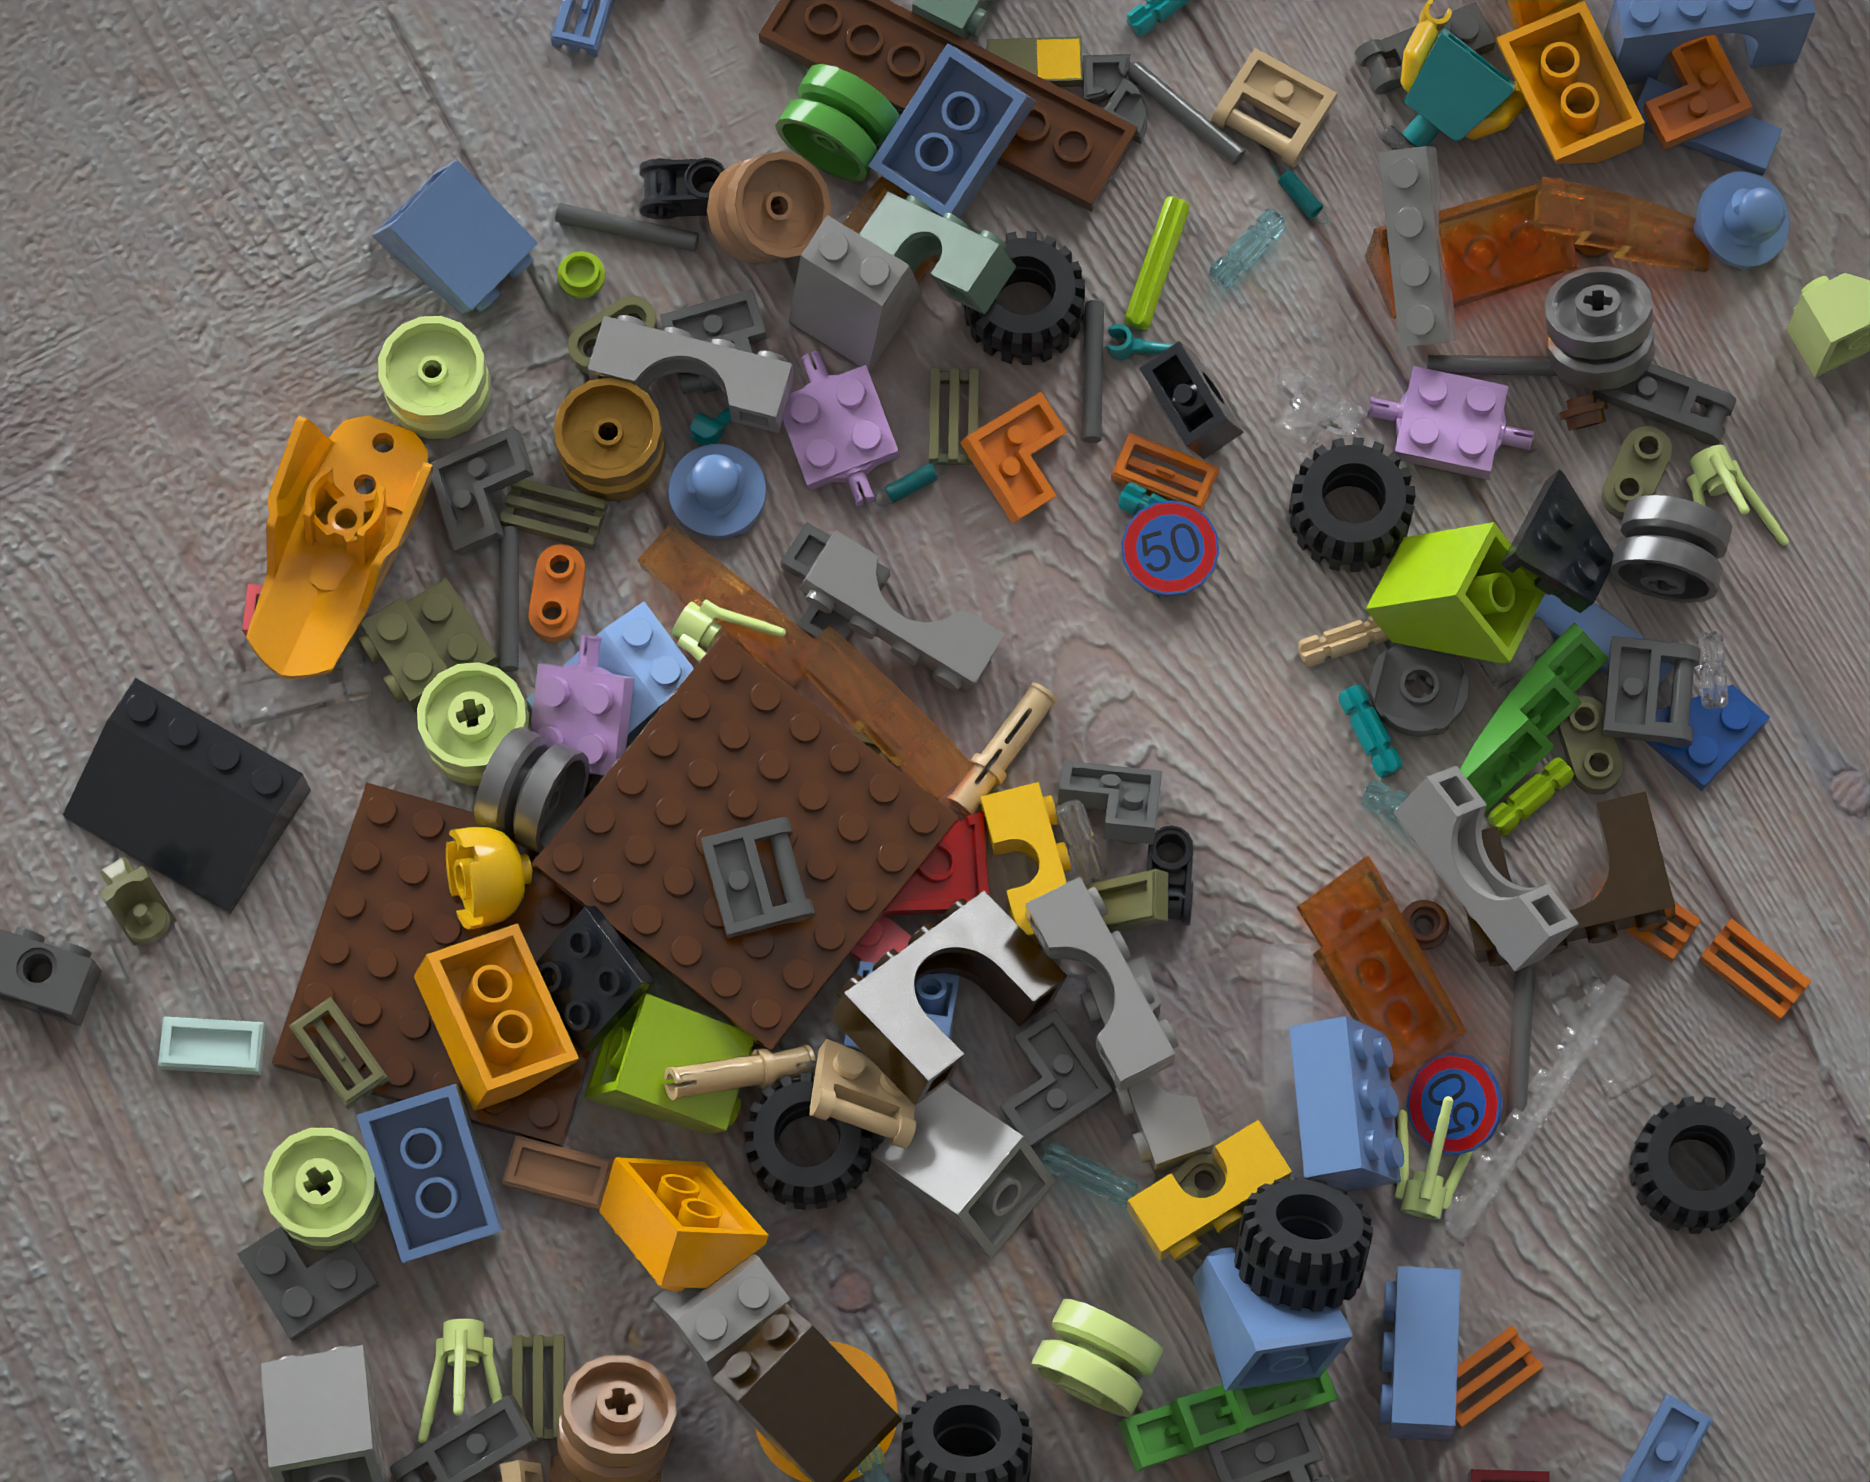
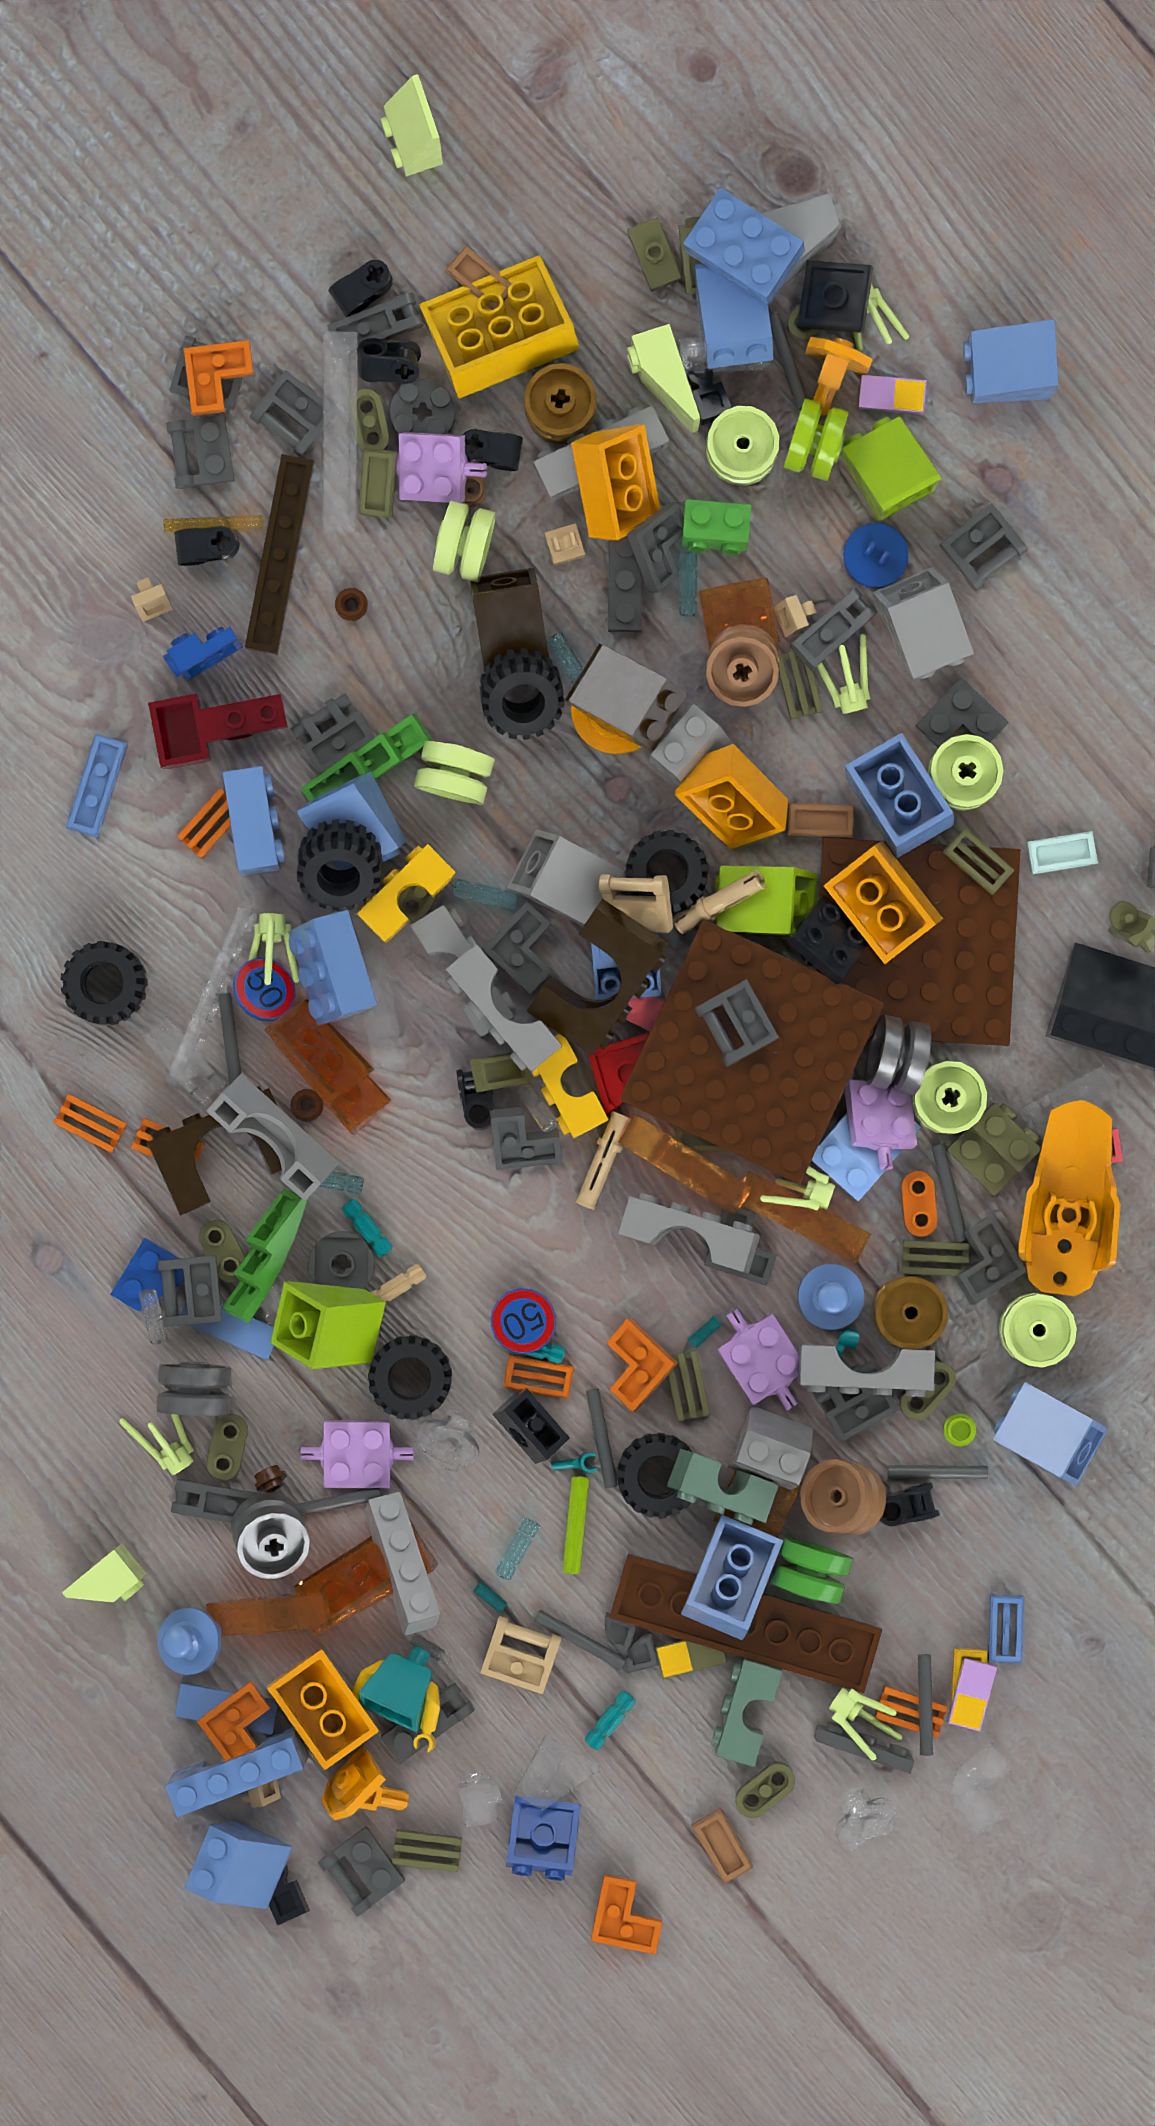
camera: 165 degrees right, 15 degrees up
(486, 875) = (912, 991): yellow cylinder -> none
(1531, 796) = (255, 1206): lime axle -> none
(1561, 546) = (266, 1375): black wing -> none

